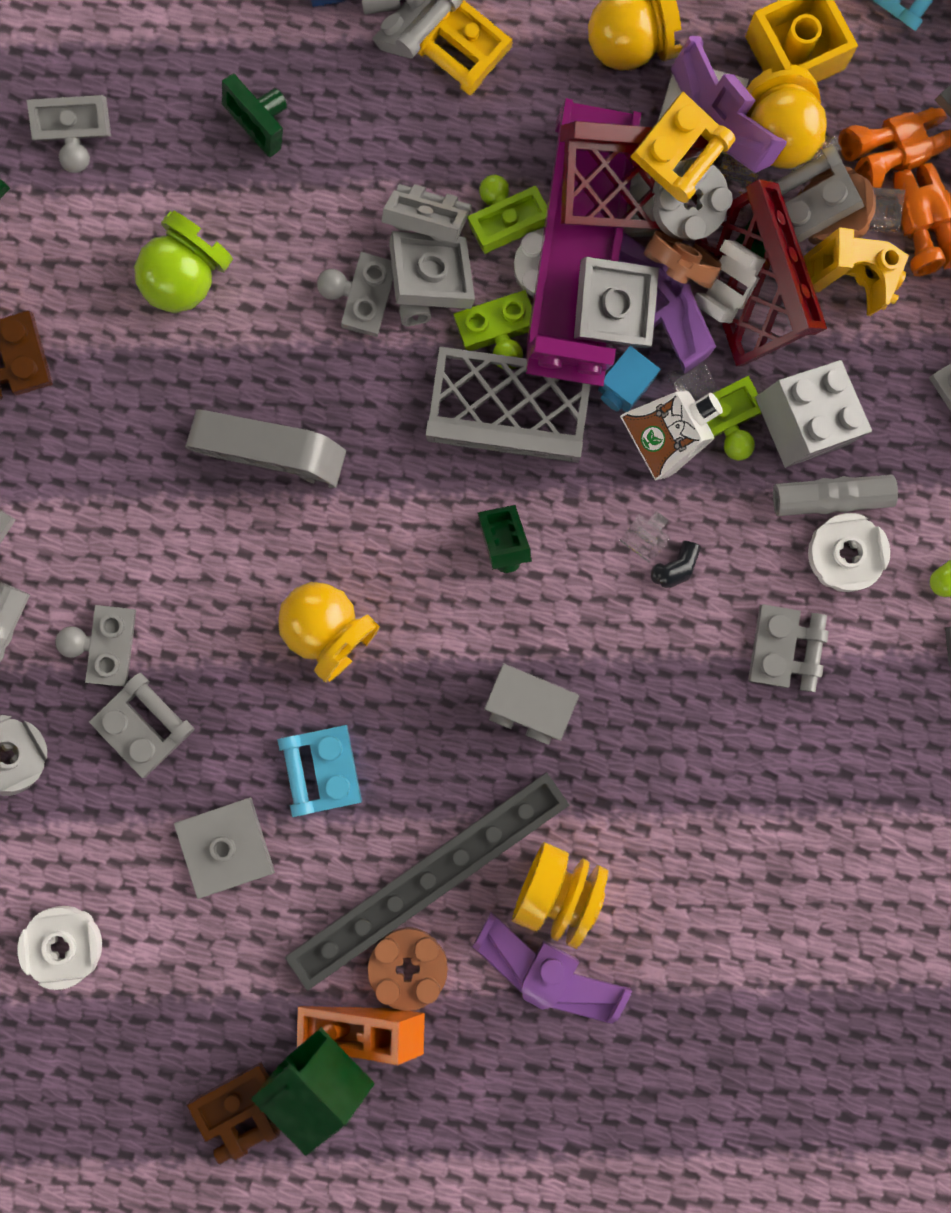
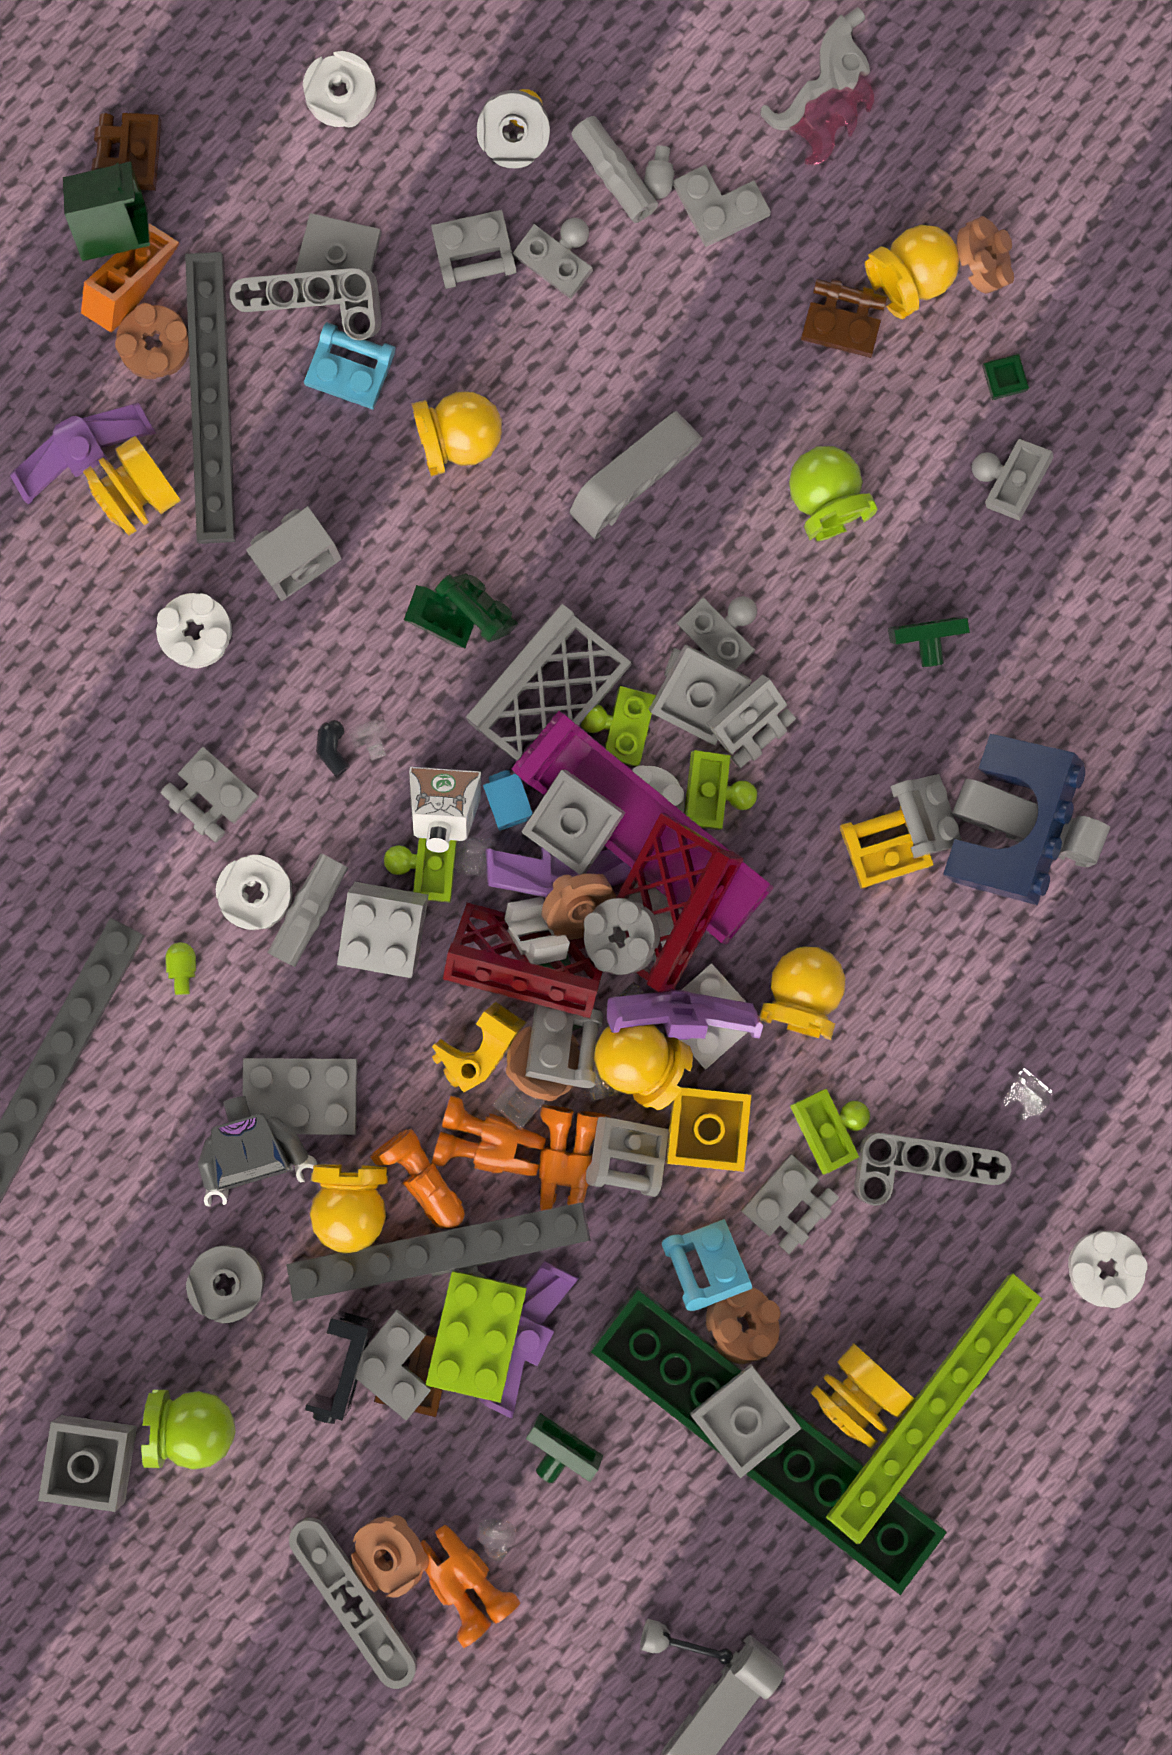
camera: 120 degrees right, 0 degrees up
(282, 845) = (305, 296): none -> light grey beam
(473, 509) = (470, 597): none -> dark green plate
(655, 779) = (201, 610): none -> white plate
(673, 138) = (671, 937): yellow plate -> none
(858, 100) = (628, 1143): none -> light grey plate

